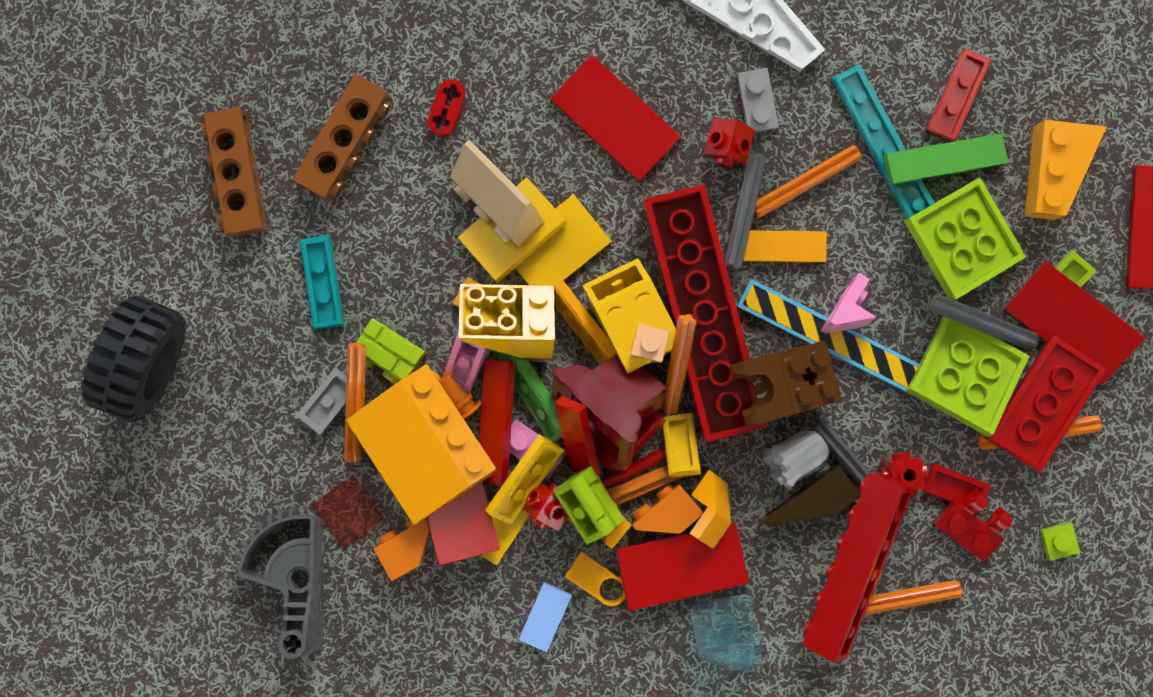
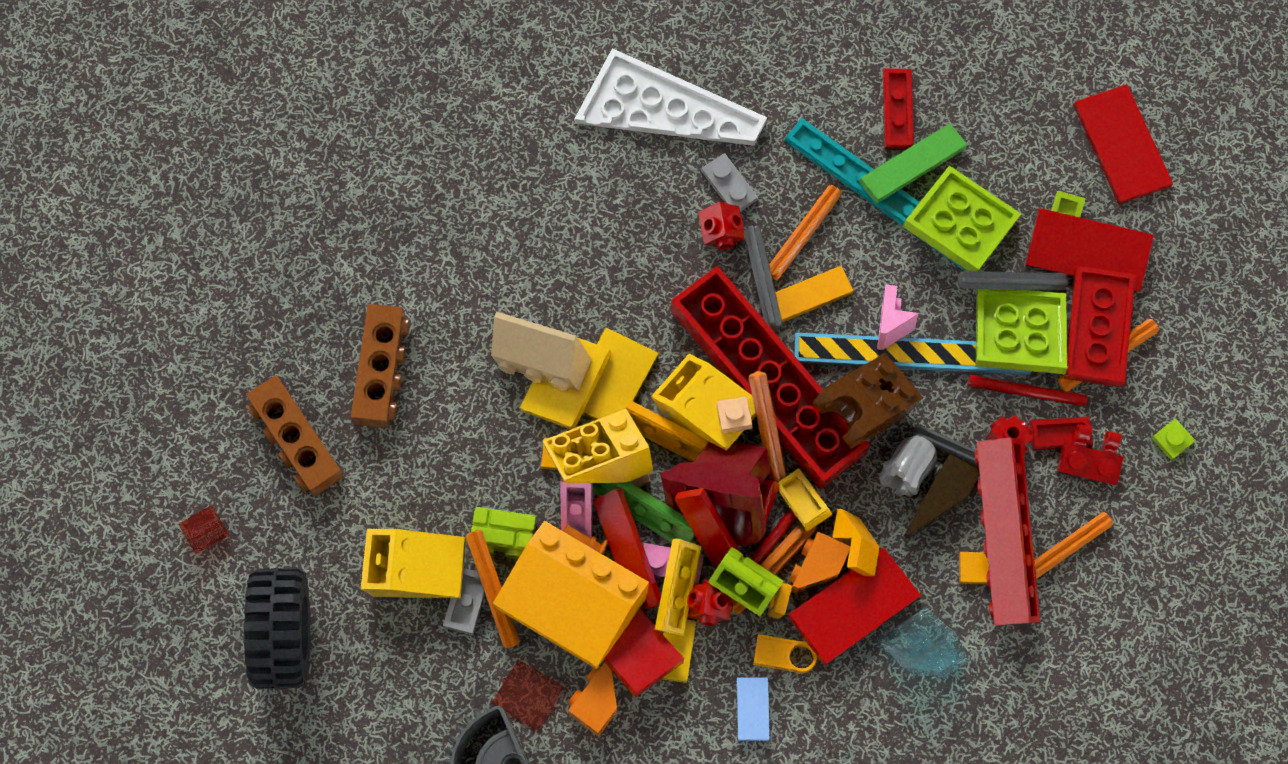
camera: 30 degrees left, 15 degrees down
(117, 225) = (203, 529): none -> clear red piece
(290, 348) = (412, 564): none -> yellow slope
(322, 282) = (413, 497): teal tile -> none
(454, 109) = (453, 303): red beam -> none
(615, 118) = (613, 249): red tile -> none
(810, 578) = (973, 568): none -> light orange tile
(945, 432) = (1027, 390): none -> red bar
(1058, 165) = (1009, 128): light orange wedge -> none

